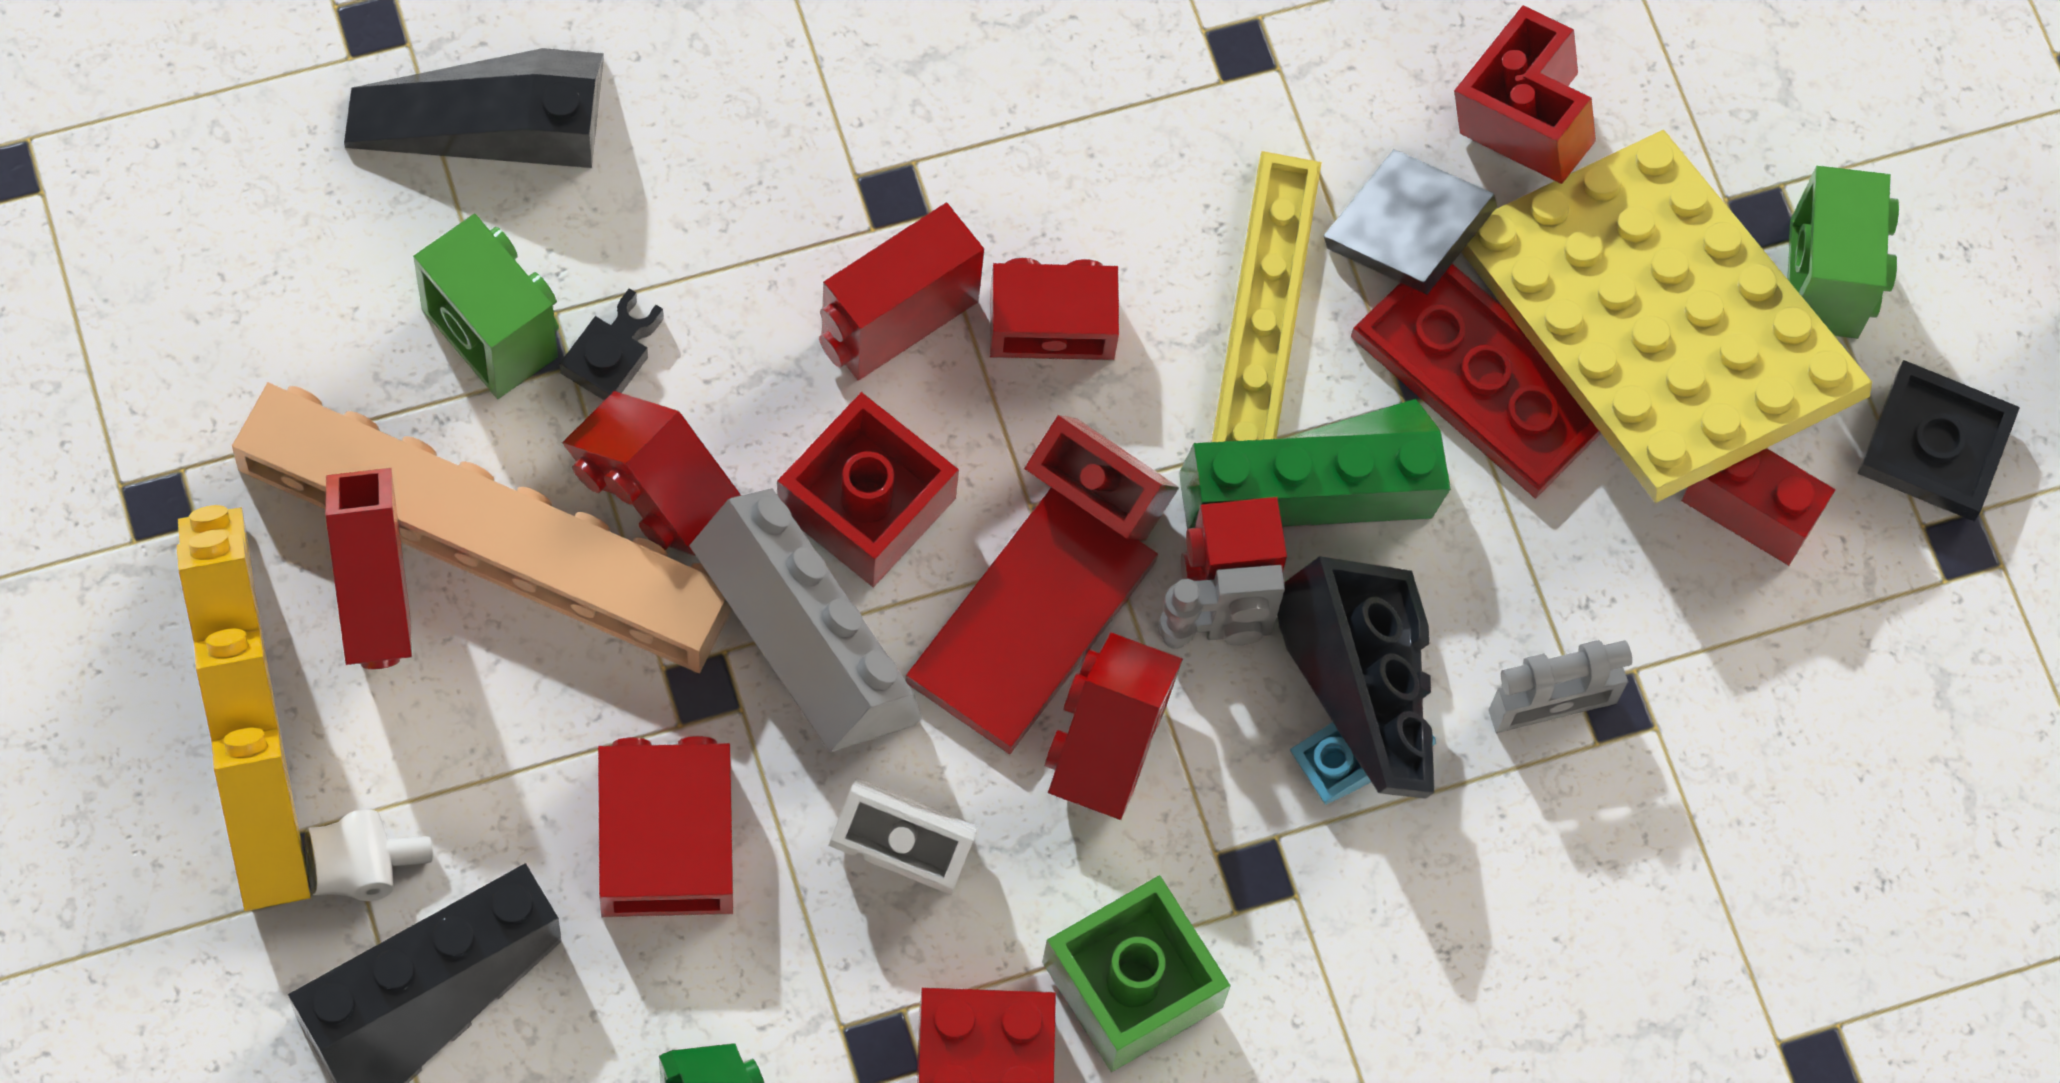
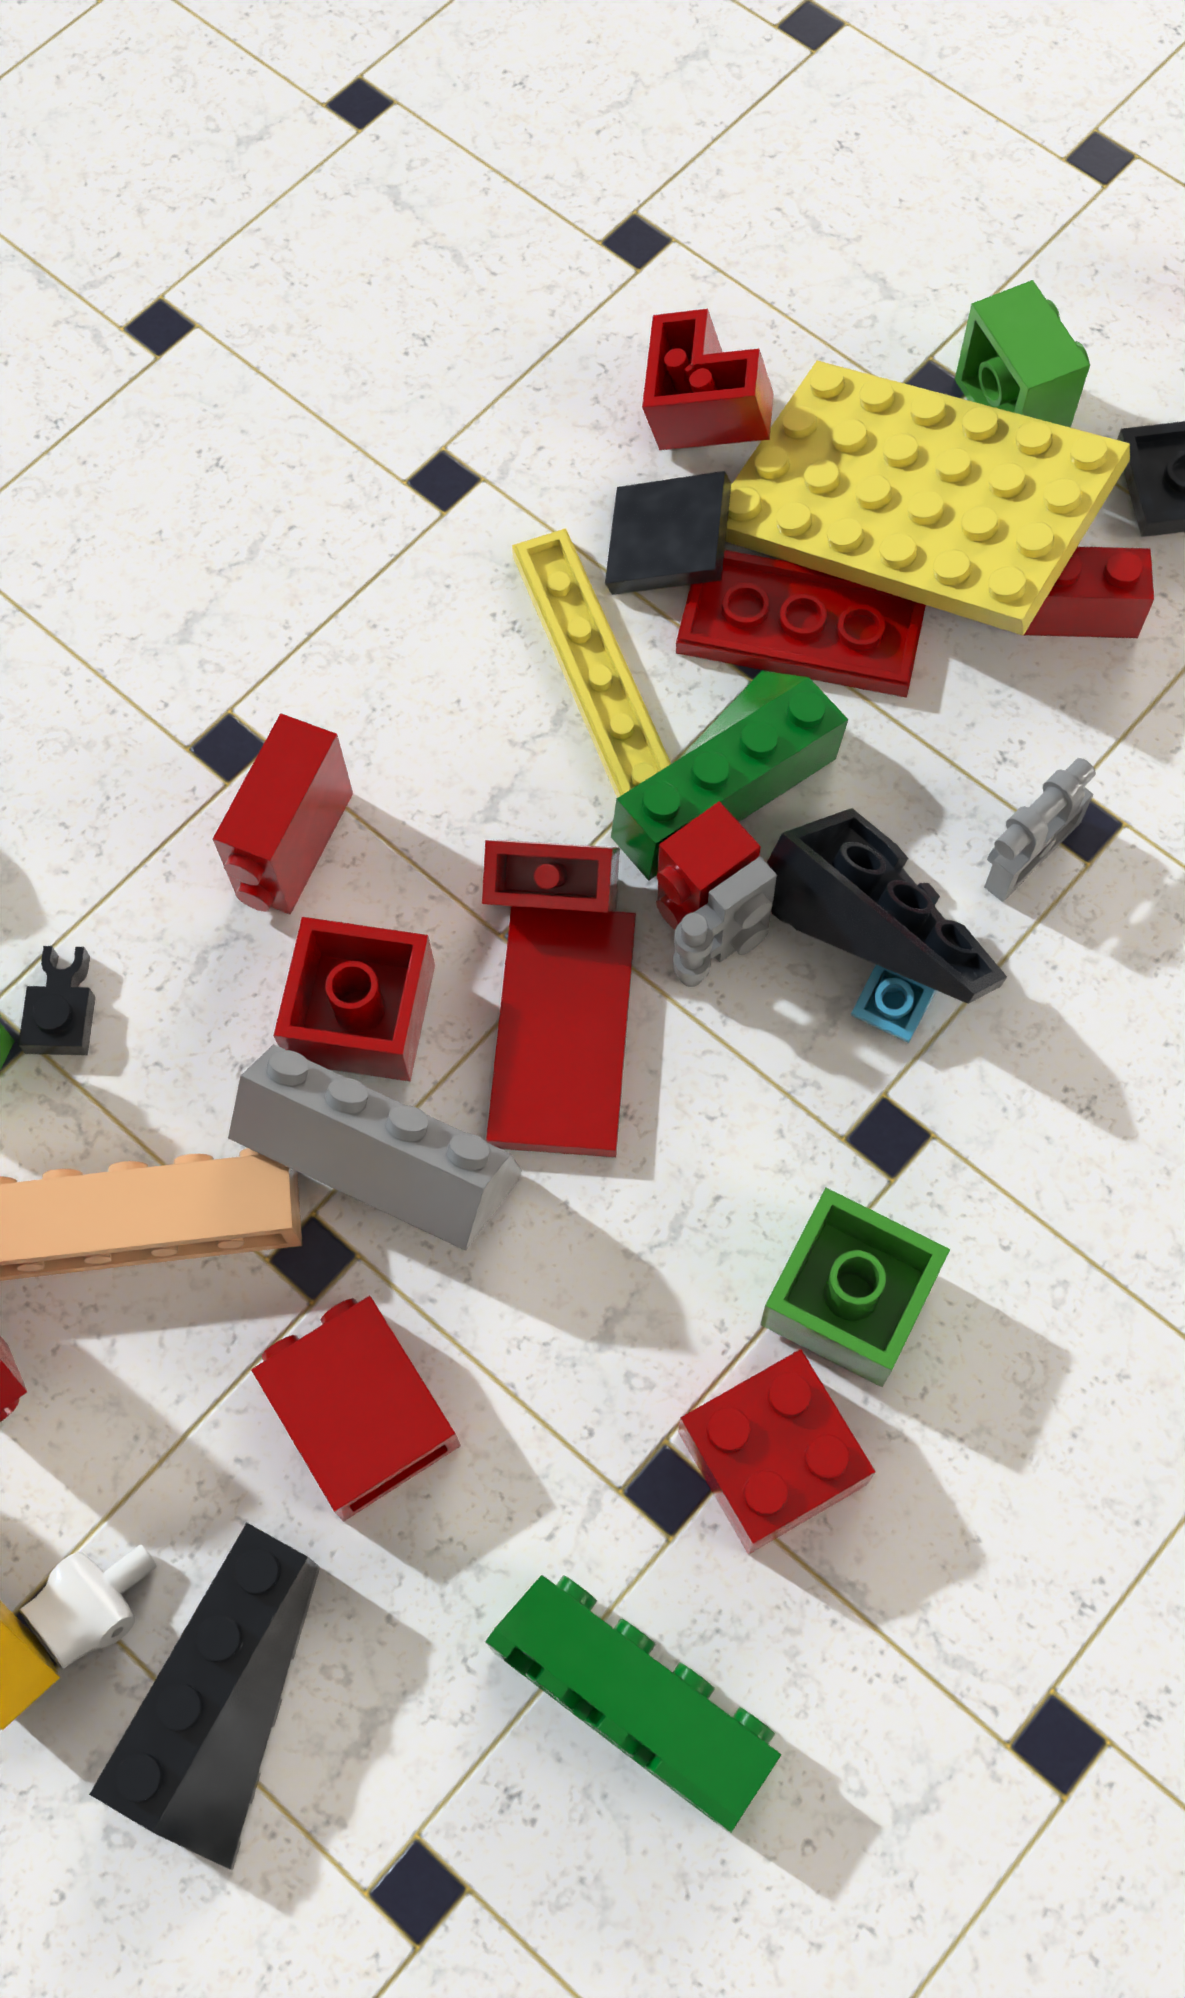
camera: 20 degrees left, 0 degrees up
(655, 464) = (152, 1083): red brick -> none
(903, 836) = (575, 1286): white brick -> none
(1054, 310) = (422, 762): red brick -> none
(1115, 717) = (697, 1068): red brick -> none

